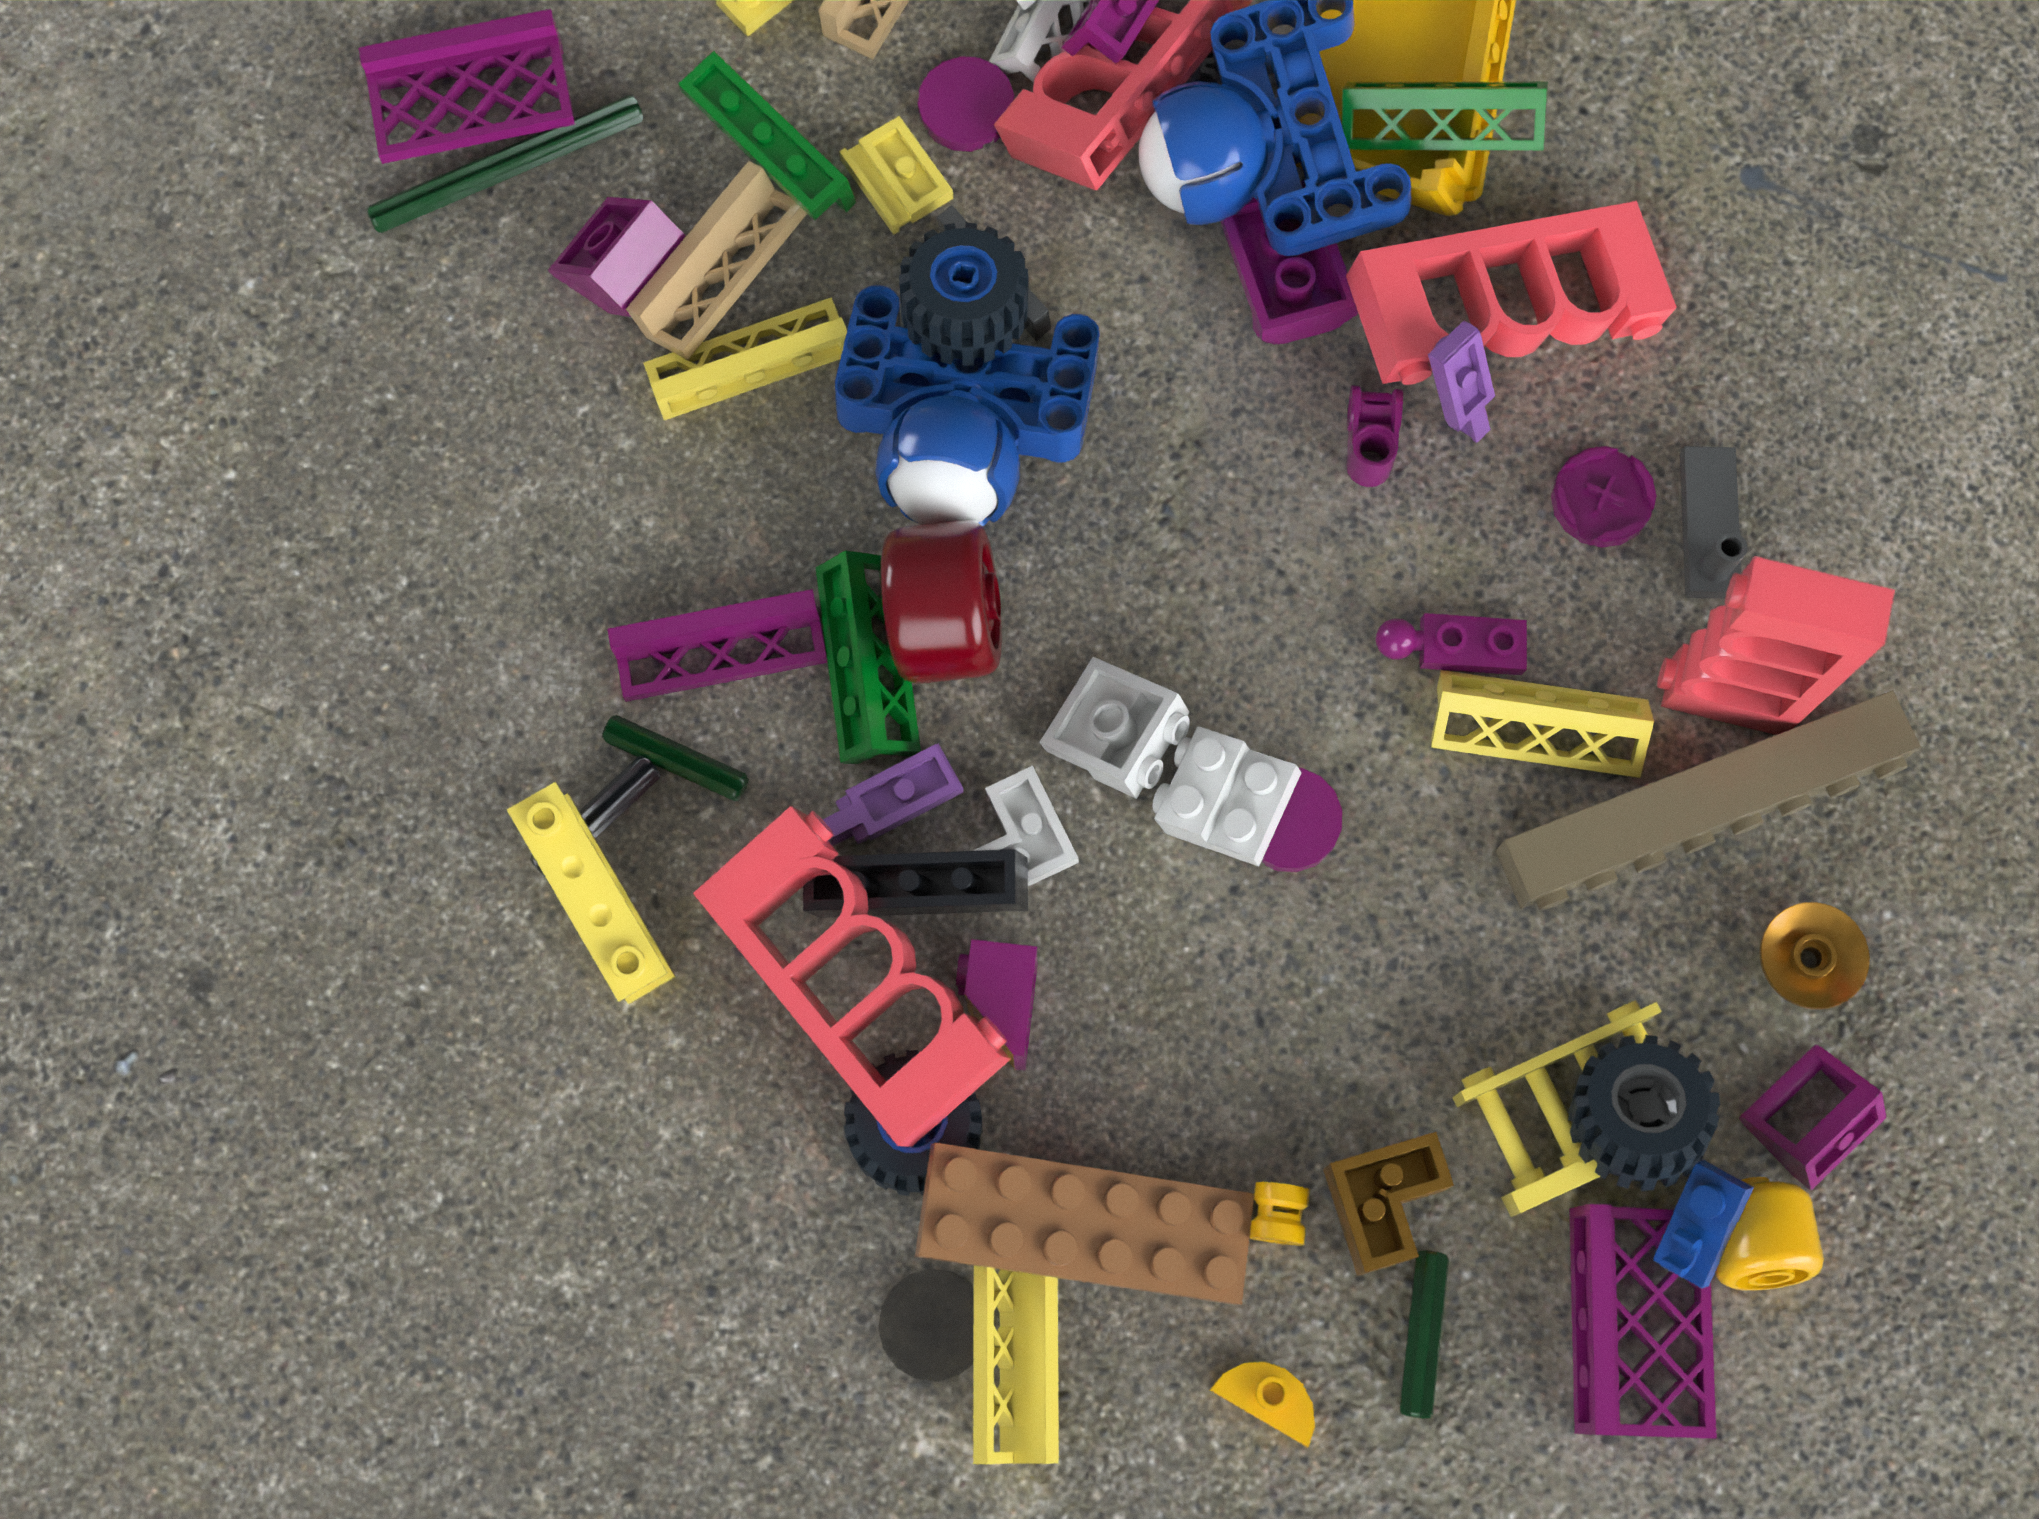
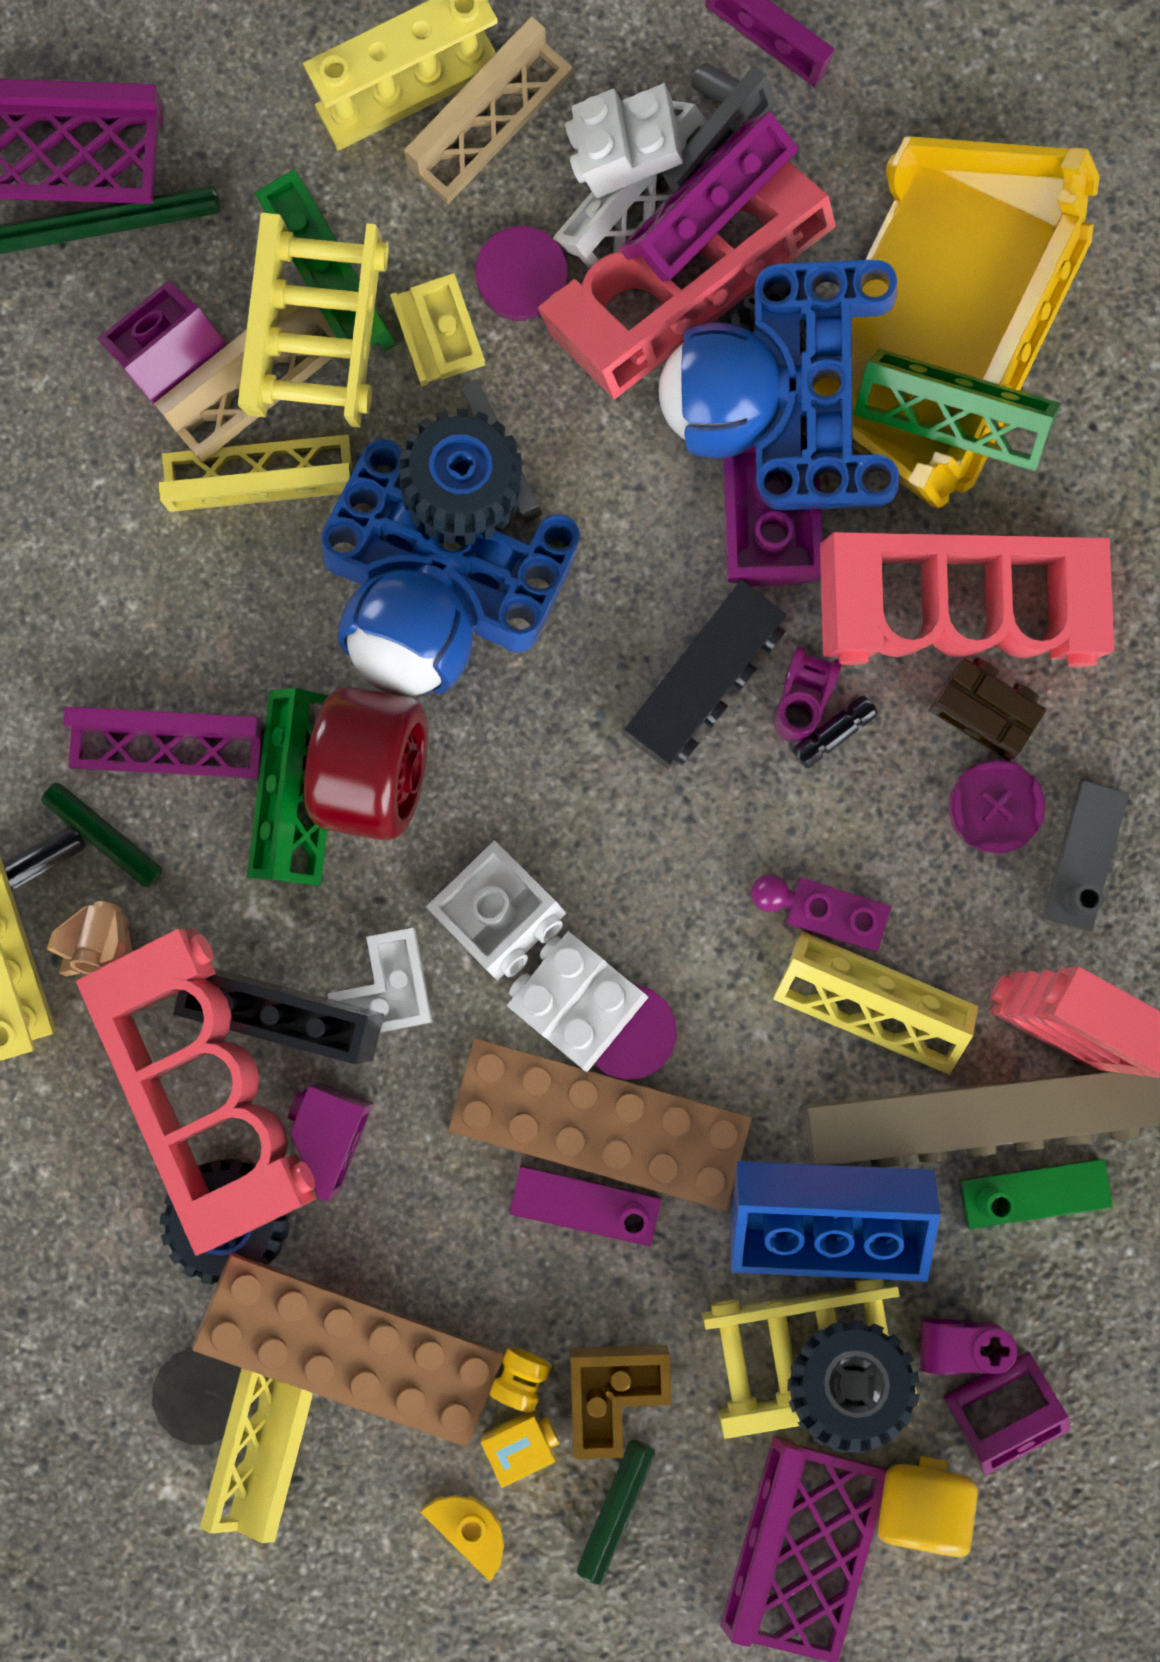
camera: 10 degrees right, 10 degrees up
(689, 861) = (91, 938): none -> light nougat brick
(725, 167) = (273, 293): none -> light yellow fence
(894, 797) = (284, 922): medium lavender hinge -> none
(1264, 439) = (705, 674): none -> black brick
(1287, 923) = (600, 1124): none -> medium nougat plate
(1295, 1013) = (585, 1206): none -> magenta piece
(1300, 1286) = (520, 1446): none -> yellow brick
(1415, 463) = (835, 731): none -> black axle
(1463, 380) = (894, 676): medium lavender hinge -> none
(1565, 399) = (988, 708): none -> dark brown brick
(1567, 949) = (833, 1221): none -> blue brick
(1702, 1223) = (875, 1492): blue plate -> none
(1740, 1054) = (955, 1347): none -> magenta piece
(1768, 877) = (1035, 1193): none -> green piece
(1835, 942) = (1071, 1290): pearl gold dish -> none

